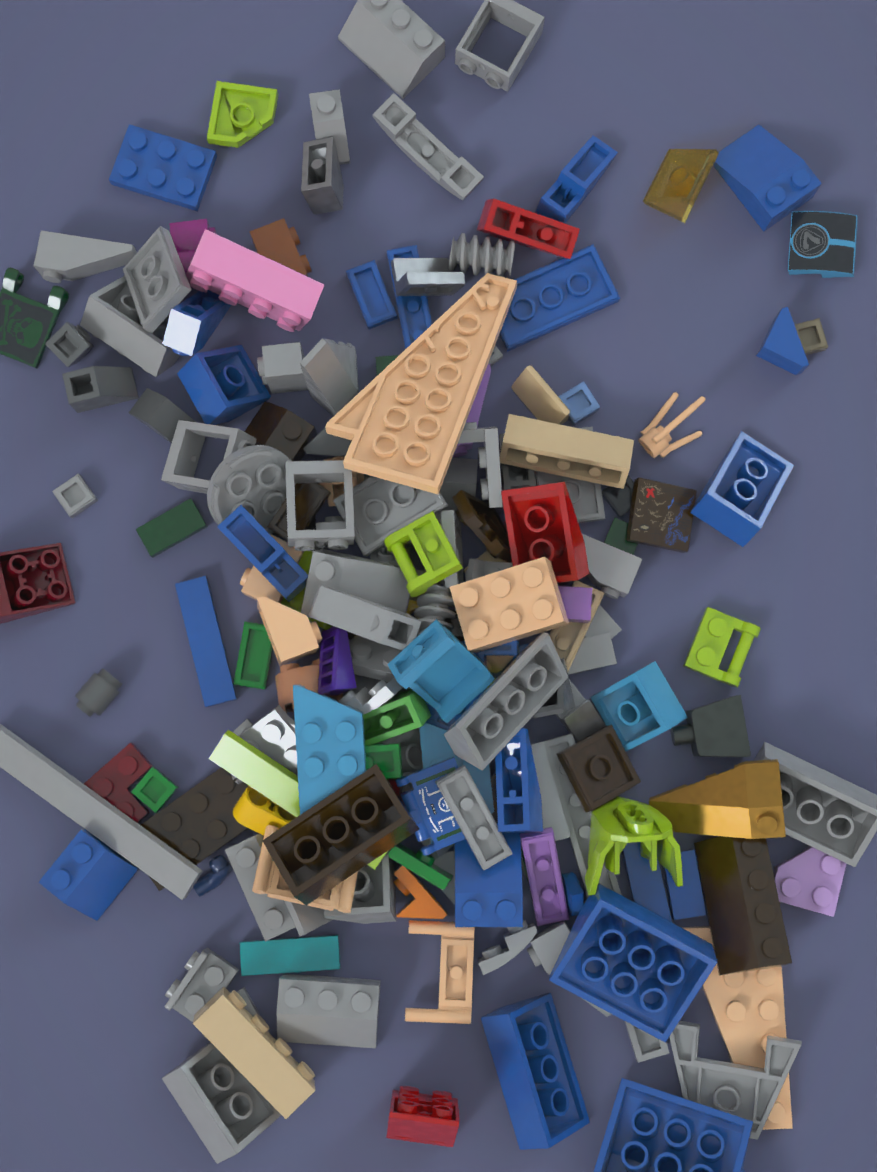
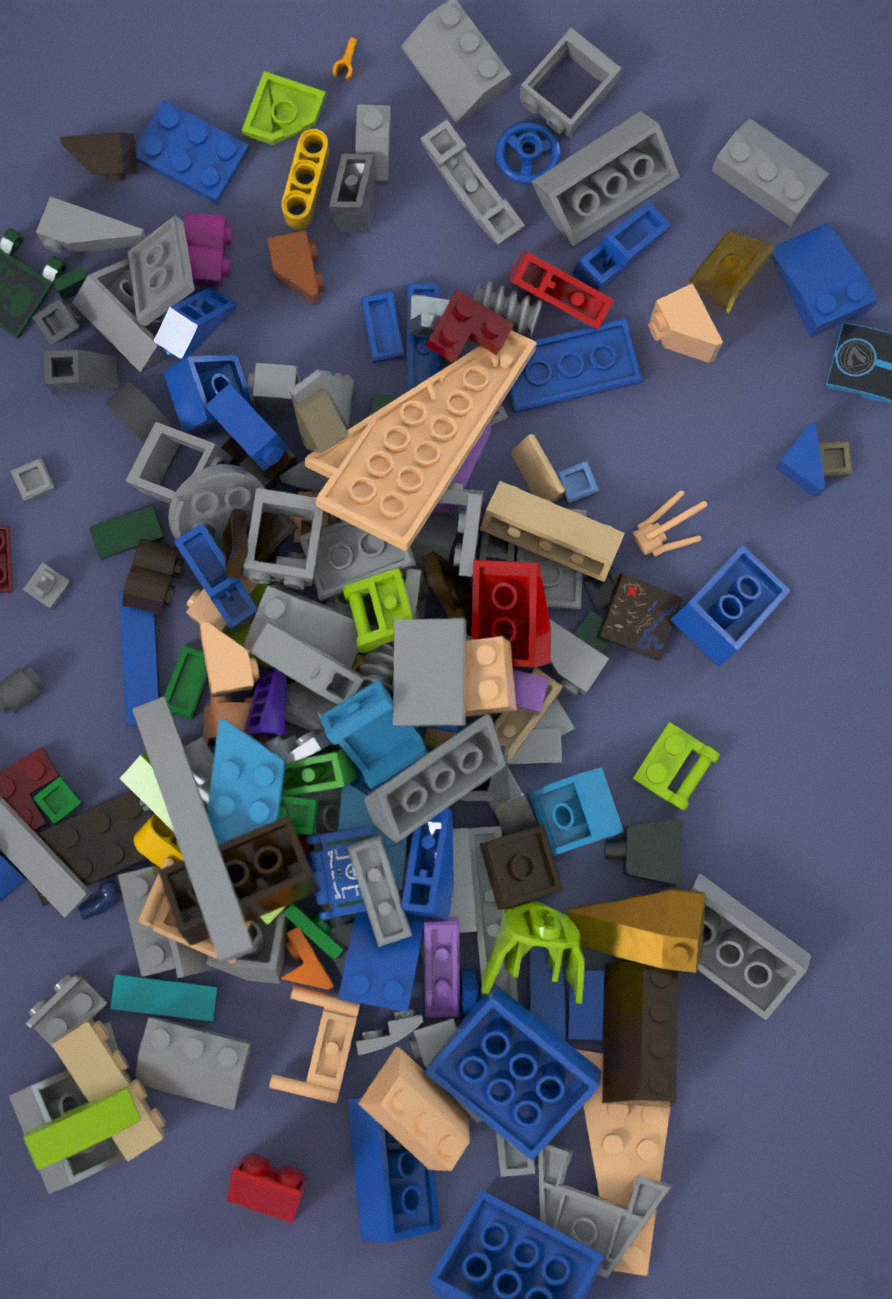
camera: 10 degrees right, 0 degrees up
(74, 307) = (70, 283): none -> dark green tile
(84, 182) = (104, 153): none -> dark brown slope
(107, 591) = (47, 586): none -> light grey tile
(202, 564) = (151, 577): none -> dark brown brick
(235, 1098) = (81, 1128): none -> lime slope
(253, 282) = (260, 293): bright pink brick -> none
(265, 407) = (247, 427): none -> blue slope
(269, 159) = (309, 164): none -> yellow beam
(275, 517) = (235, 543): none -> dark brown tile
(289, 797) = (193, 831): none -> light grey tile
(290, 59) = (346, 60): none -> light orange hand
(332, 389) = (319, 422): none -> dark tan slope
(450, 271) = (464, 320): none -> dark red plate
(473, 99) = (527, 140): none -> blue piece
(483, 603) = (429, 672): none -> light grey tile
(550, 120) = (606, 178): none -> light grey slope
(550, 1019) = (418, 1112): none -> light nougat slope
(651, 239) = (685, 325): none -> light nougat slope
(696, 88) = (769, 171): none -> light grey slope
(810, 881) = (717, 1027): lavender plate -> none

